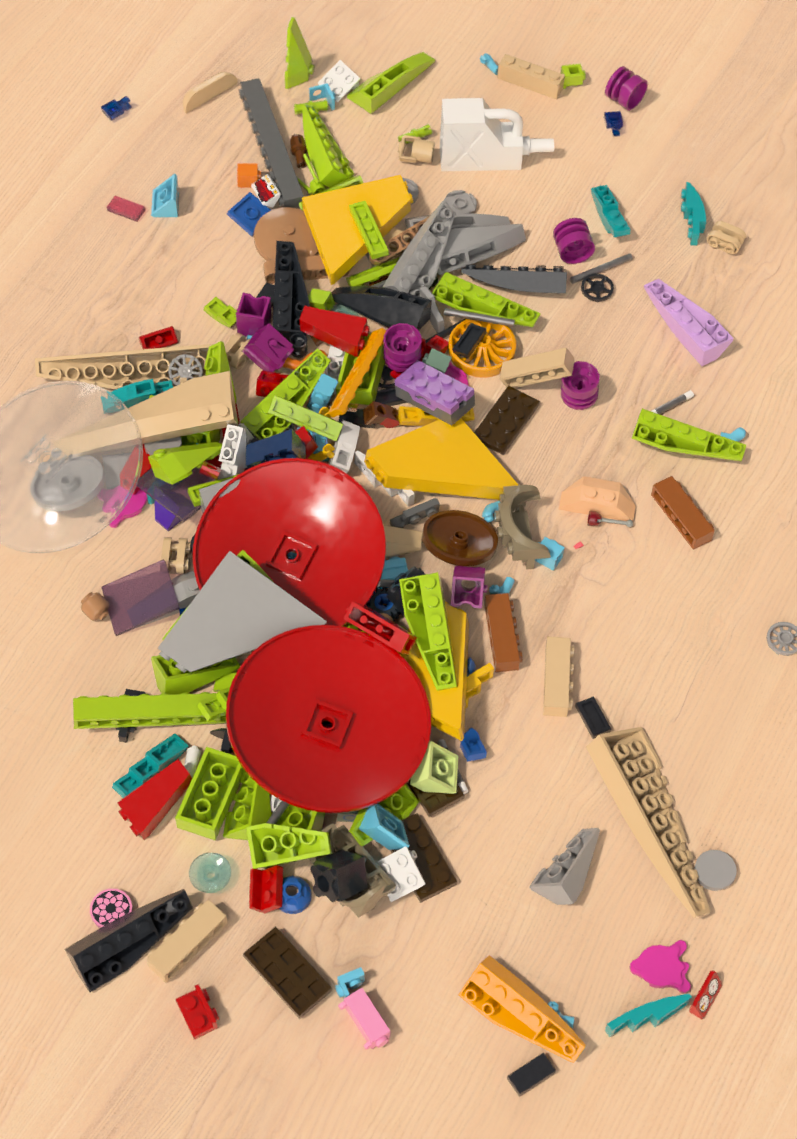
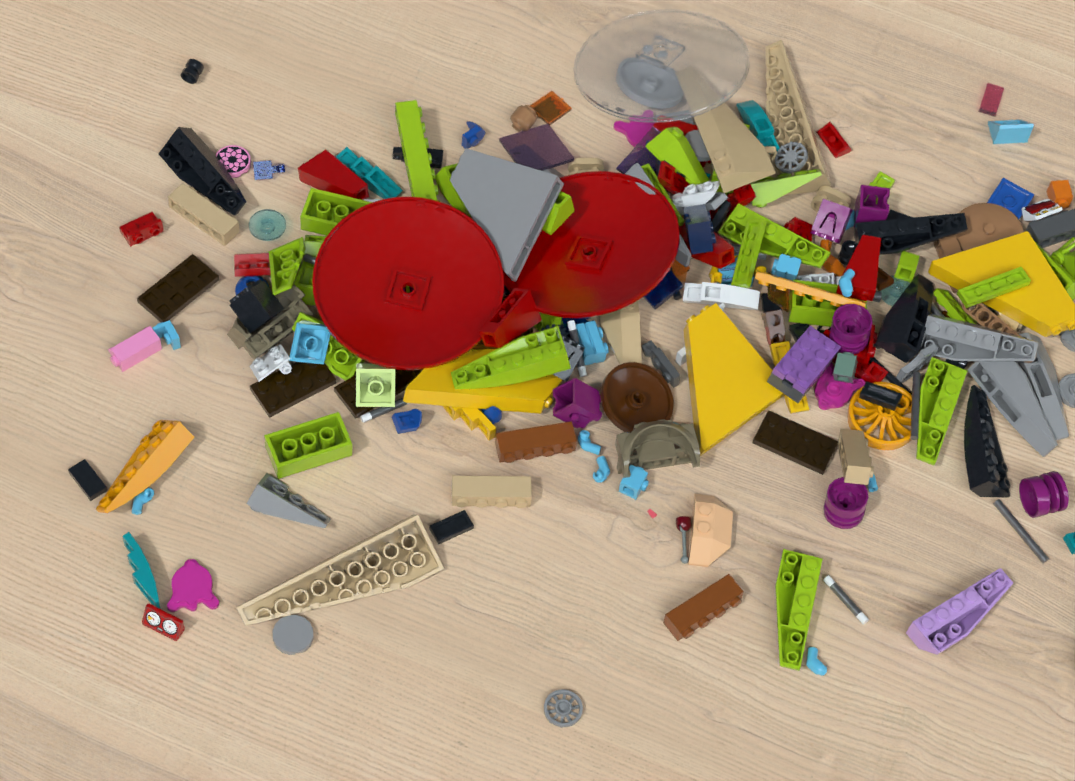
camera: 80 degrees right, 0 degrees up
(79, 582) = (550, 108): none -> clear orange piece
(115, 658) = (473, 136): none -> blue plate
(129, 870) = (263, 169): none -> clear blue plate
(358, 338) = (845, 283): none -> medium azure arm
(502, 841) = (308, 445): none -> lime brick
(532, 578) = (603, 471): none -> medium azure arm
(597, 287) = (992, 527): black wheel -> none

